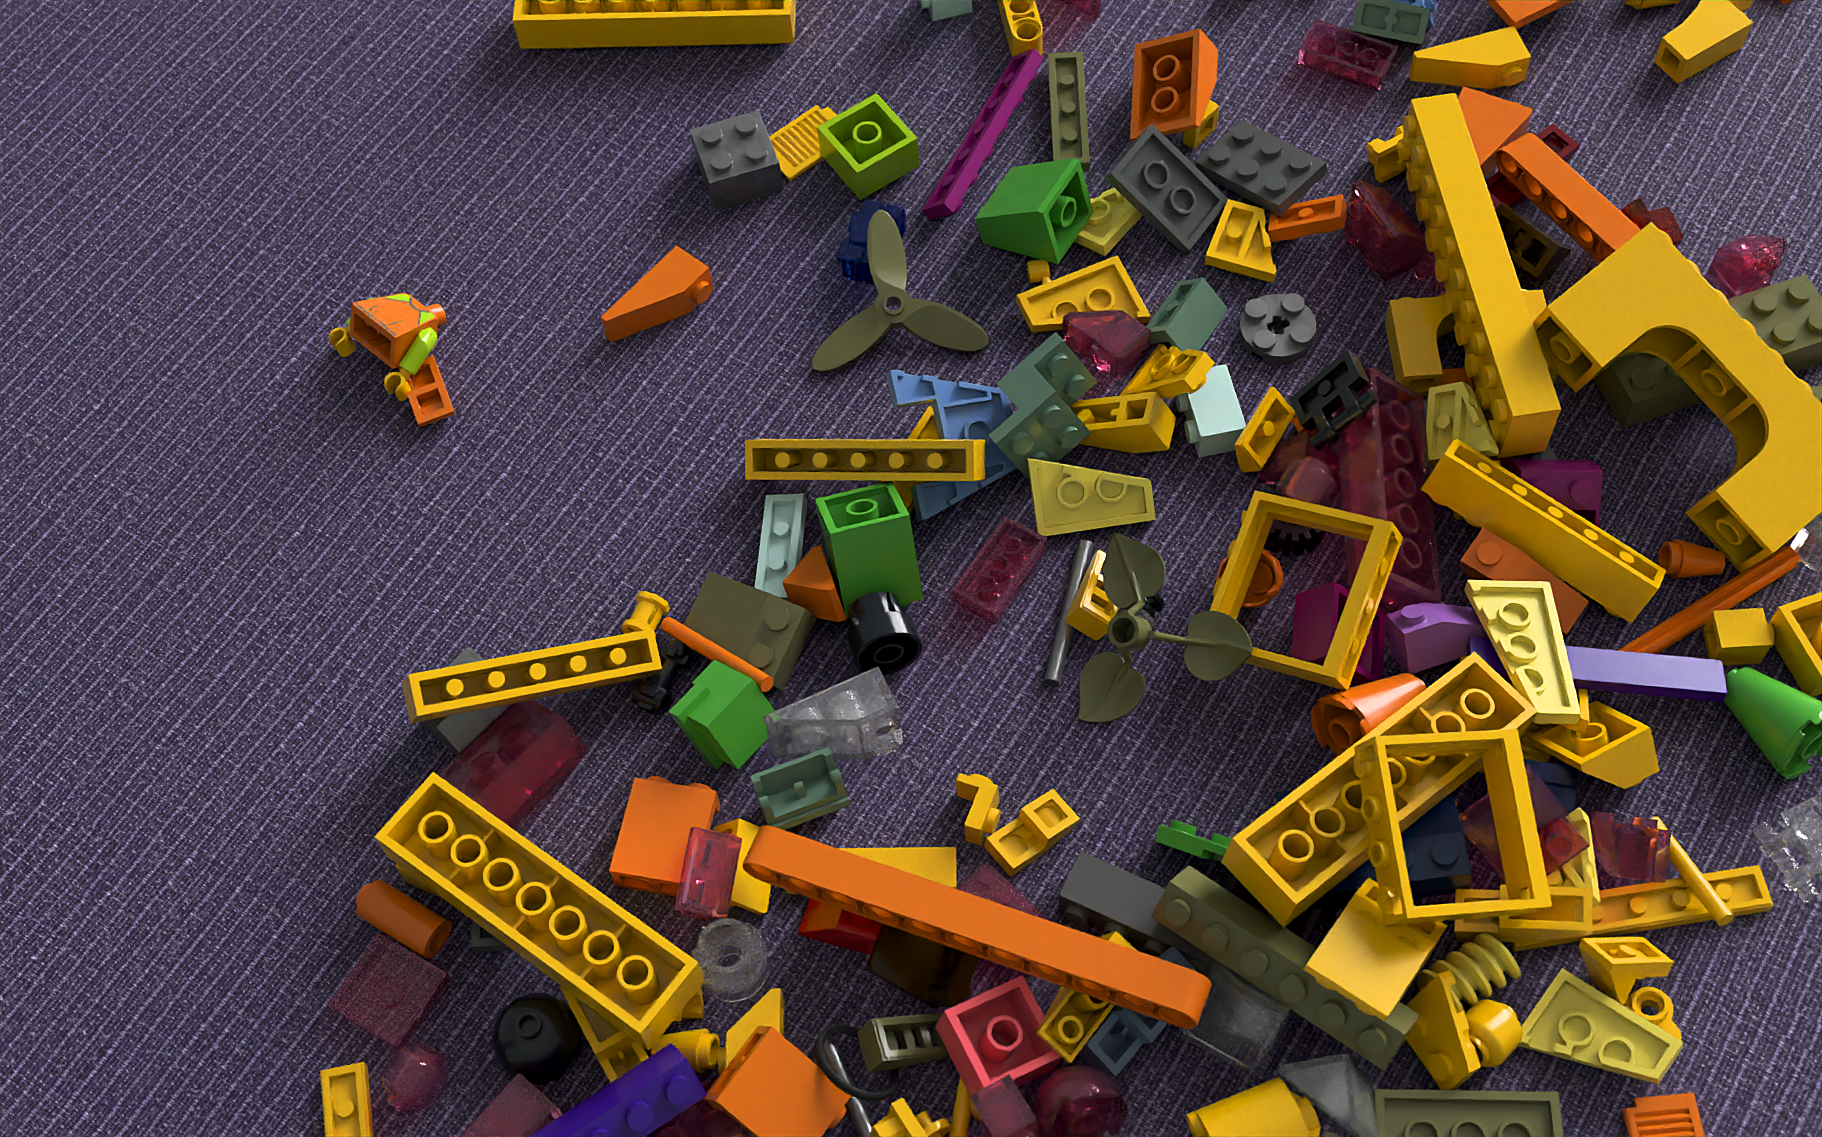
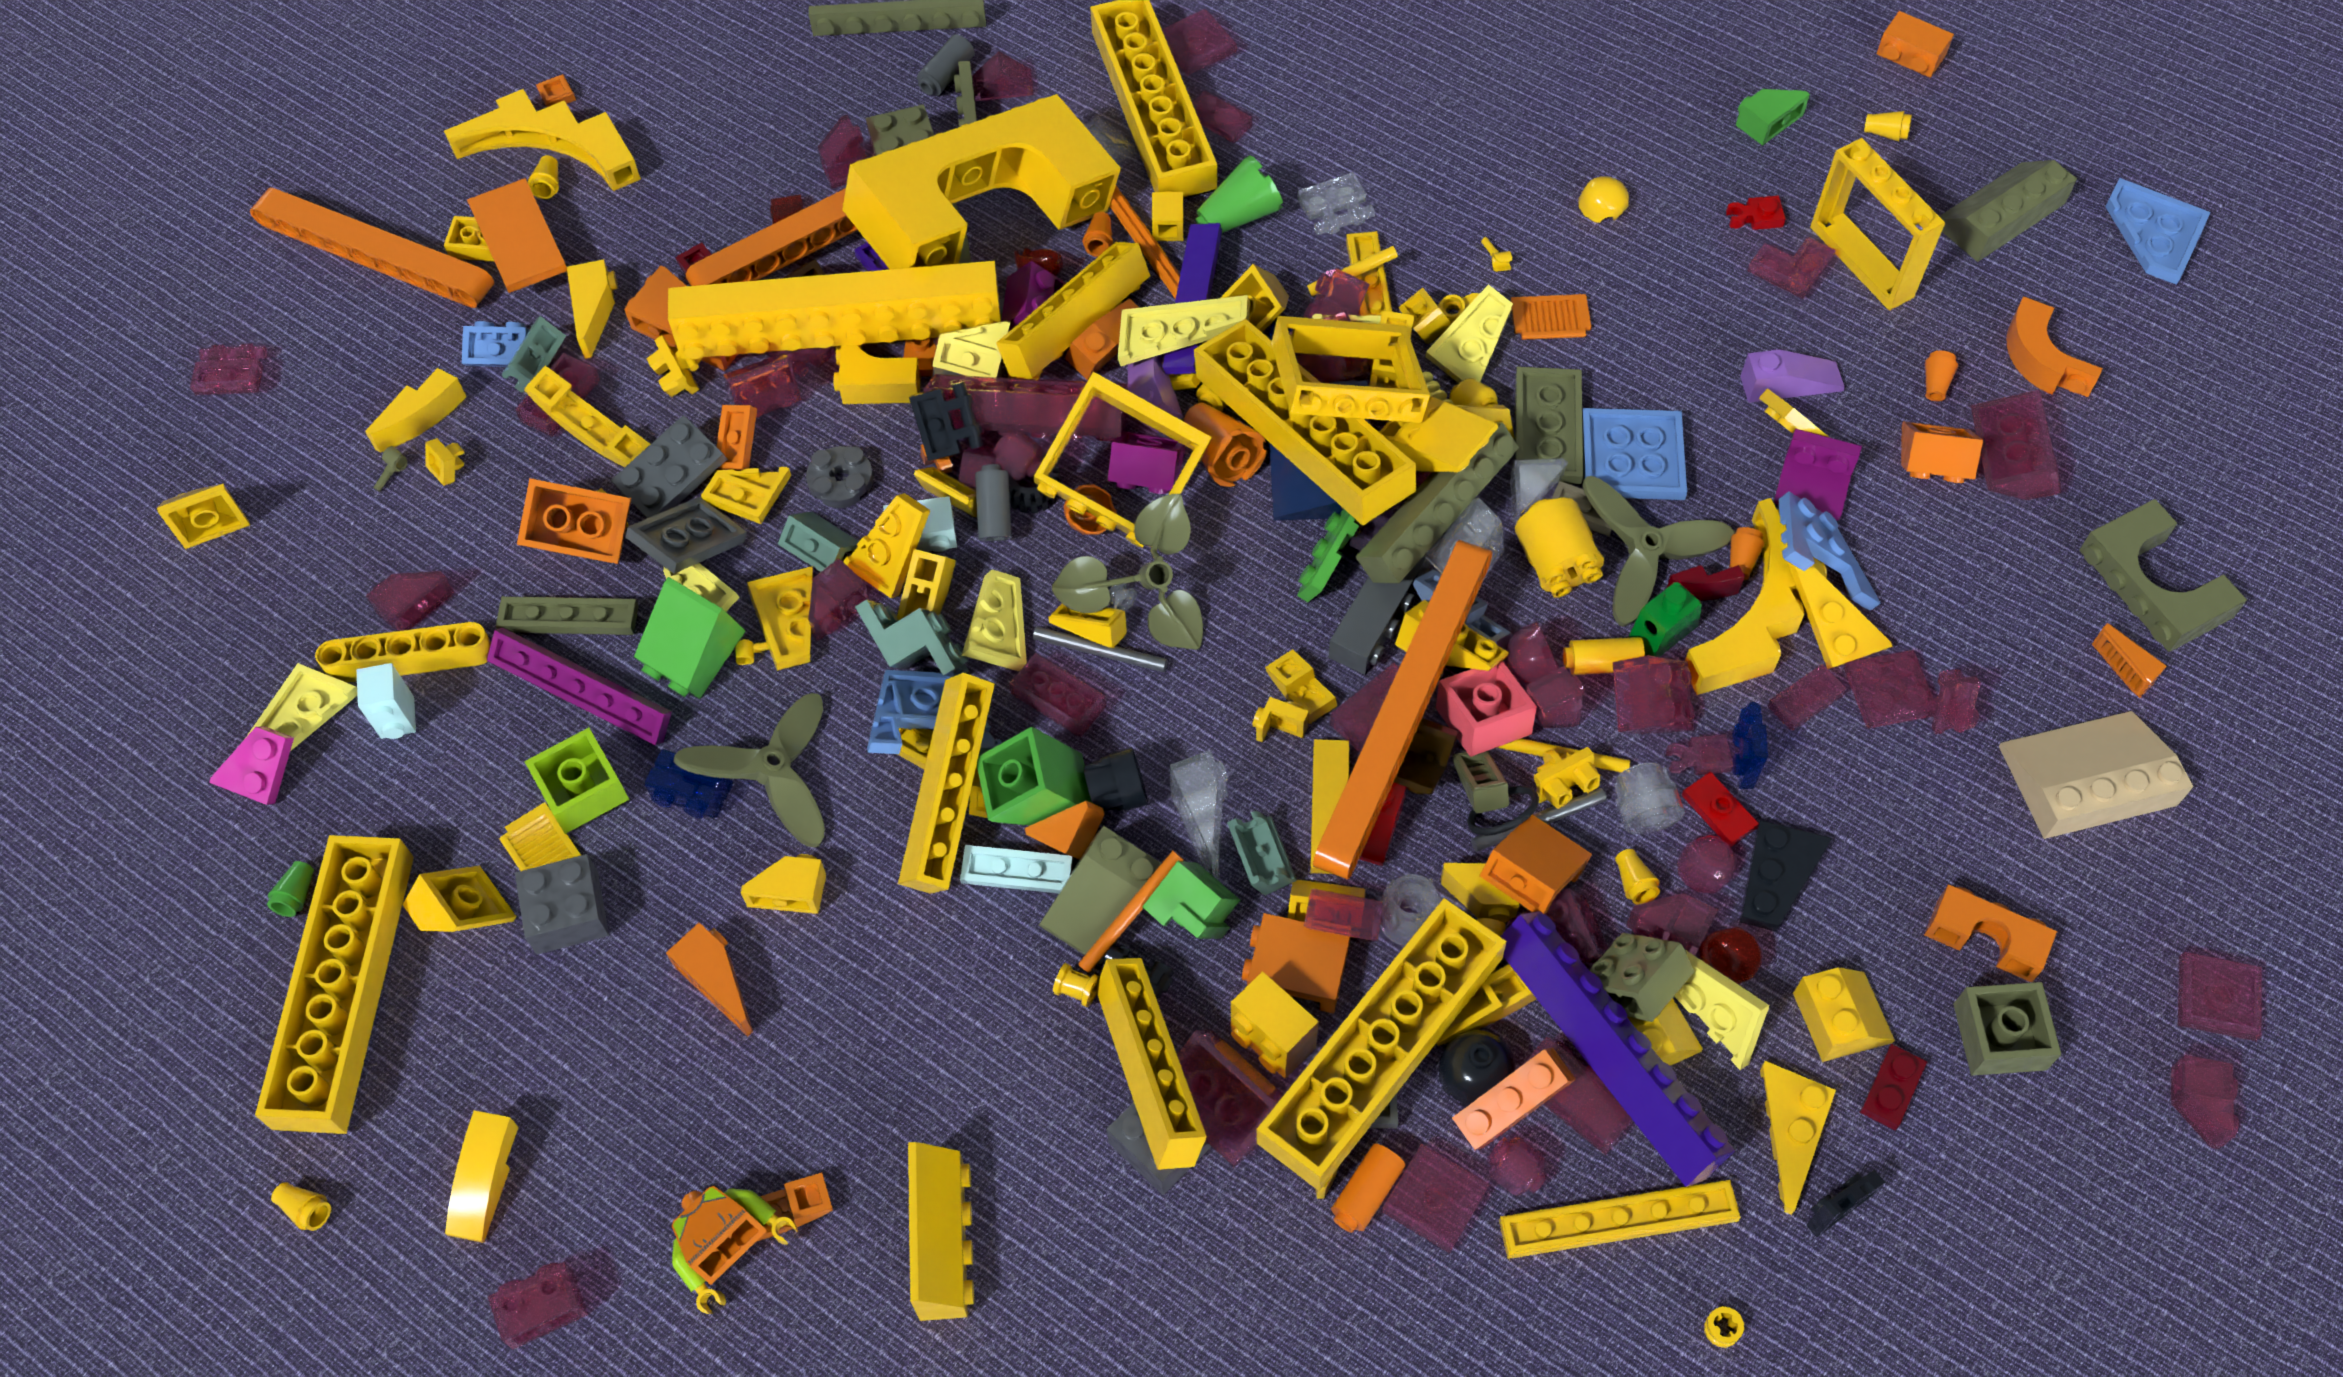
camera: 90 degrees left, 0 degrees up
(348, 211) = (537, 1304): none -> clear pink brick
(380, 508) = (938, 1232): none -> yellow slope
(451, 30) = (303, 1207): none -> yellow cone
(472, 147) = (480, 1175): none -> yellow slope
(476, 1064) = (1513, 1098): none -> brick
(579, 805) = (1273, 1025): none -> yellow brick
(739, 79) = (456, 901): none -> yellow slope
(759, 346) = (788, 885): none -> yellow slope
(1242, 474) = (993, 503): none -> dark grey brick
(1314, 78) = (582, 420): none -> yellow slope
(1623, 493) = (1045, 258): none -> clear red hair
(1757, 1079) = (1500, 260): none -> yellow hand

